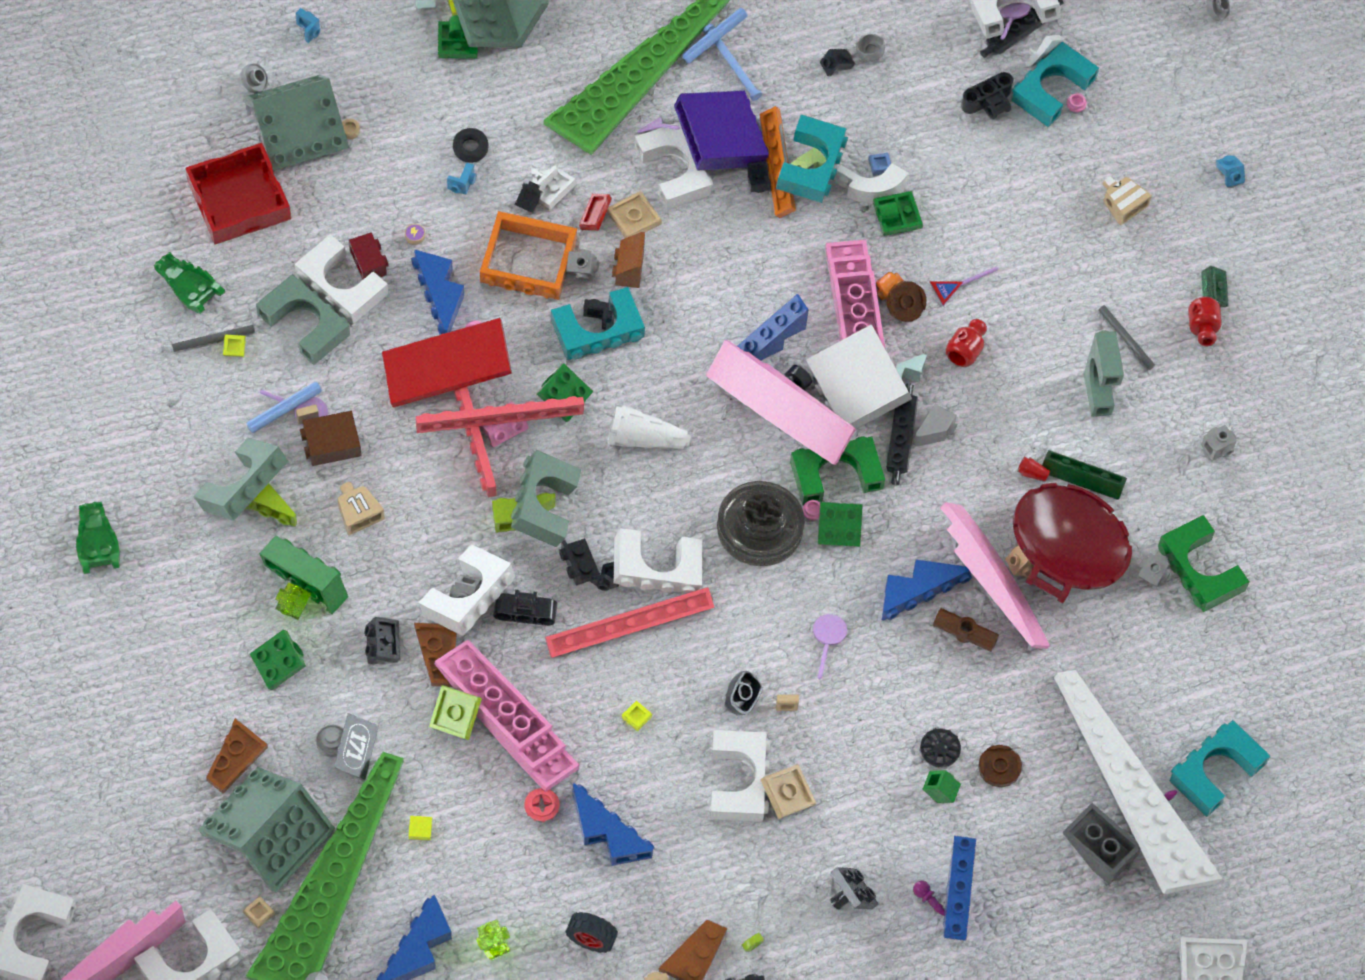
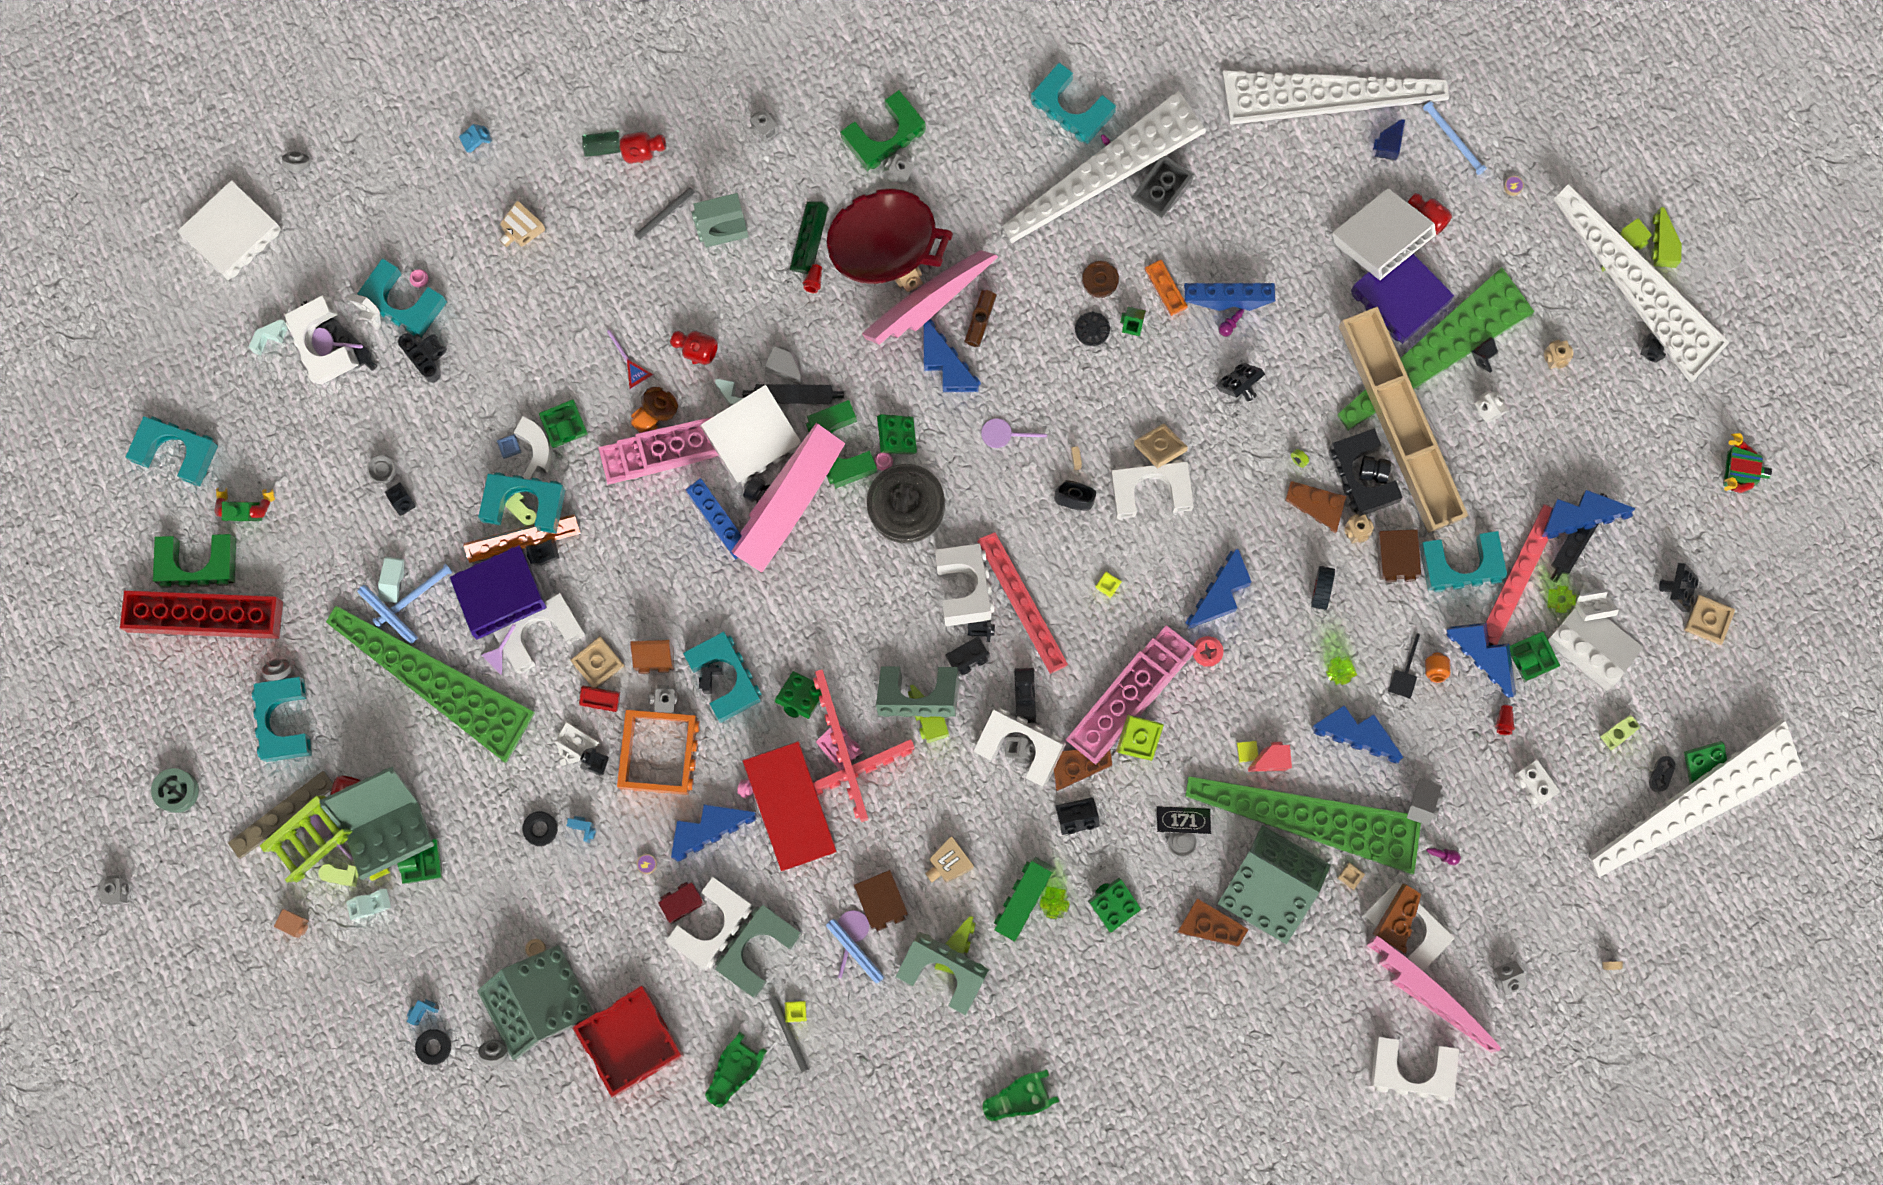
camera: 90 degrees left, 15 degrees up
(196, 940) = (1397, 920): none -> dark orange wing
(276, 42) = (442, 1055): none -> black tyre
(306, 413) = (861, 927): tan tile -> none
(405, 848) = (1272, 758): none -> coral slope
(641, 430) = (830, 621): white cone -> none
(755, 43) = (390, 577): none -> light aqua slope
(986, 832) = (1166, 287): none -> orange tile

